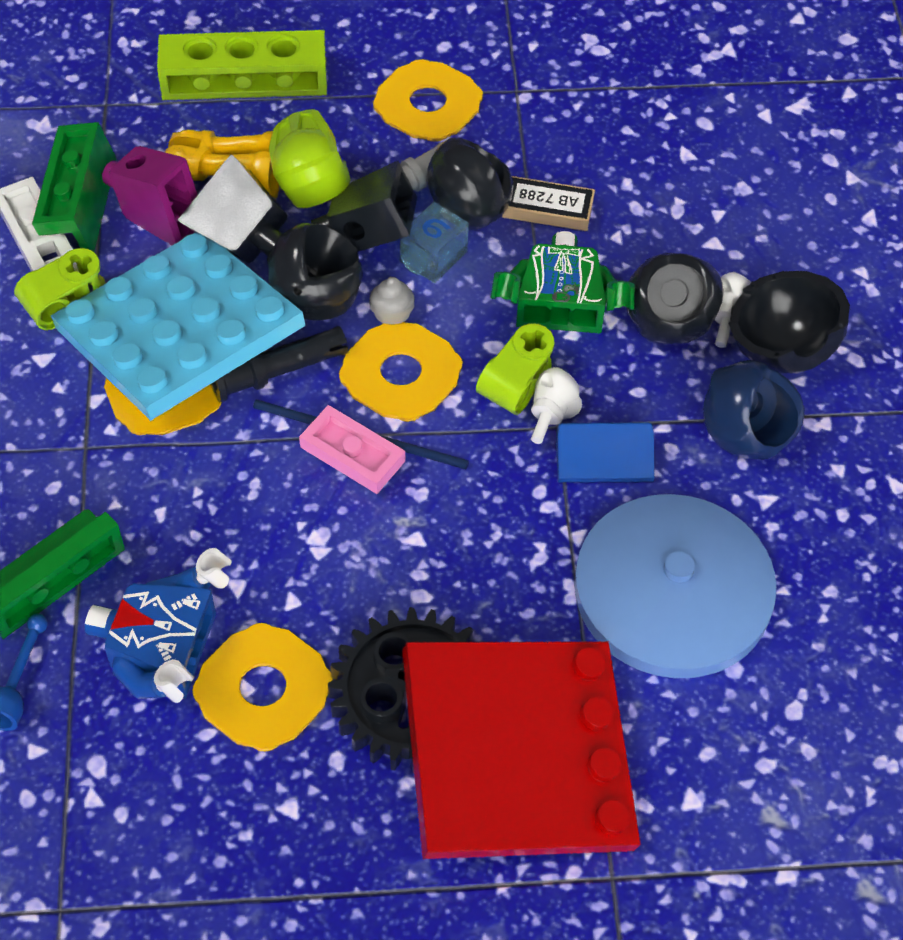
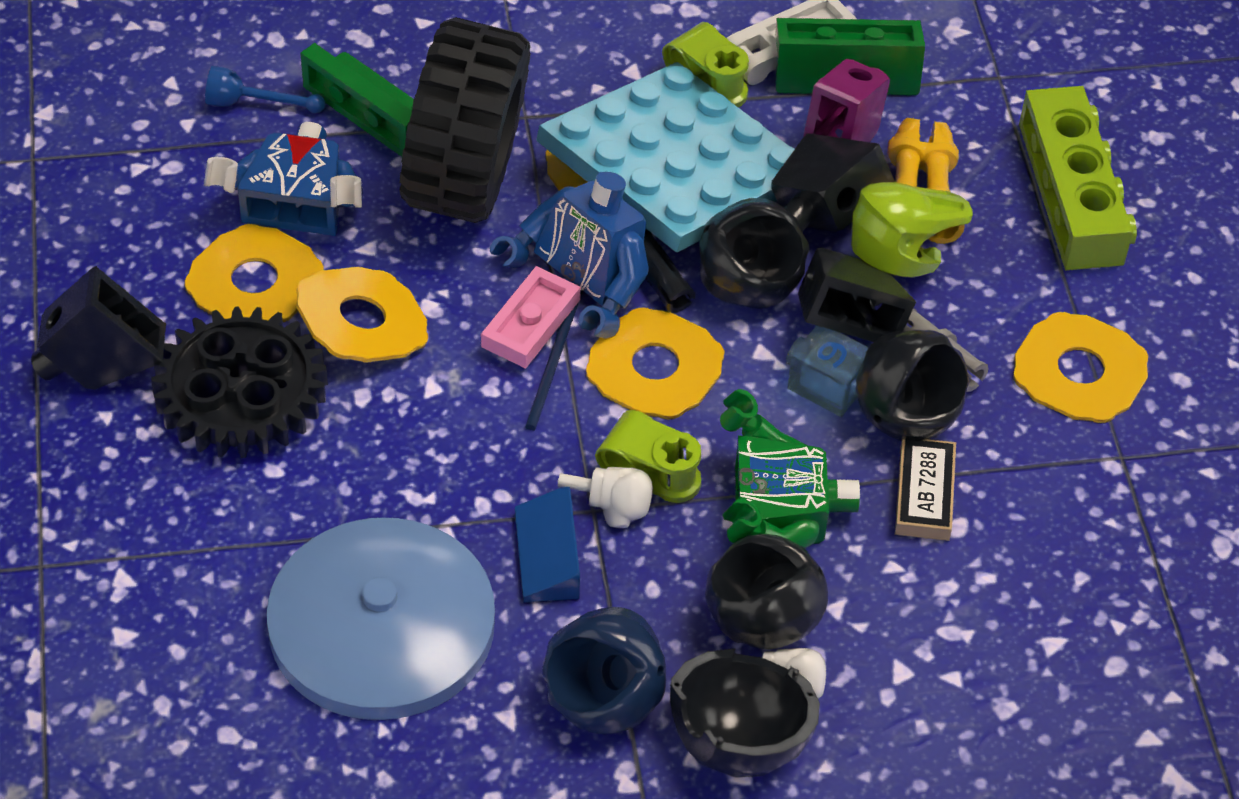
camera: 85 degrees right, 5 degrees down
(155, 448) = (464, 119): none -> black tyre
(284, 386) = (592, 242): none -> blue torso
(312, 612) = (397, 337): none -> yellow piece
(366, 810) = (97, 334): none -> black torso
(392, 301) = (739, 339): light grey plate -> none
(518, 749) = (164, 461): red plate -> none

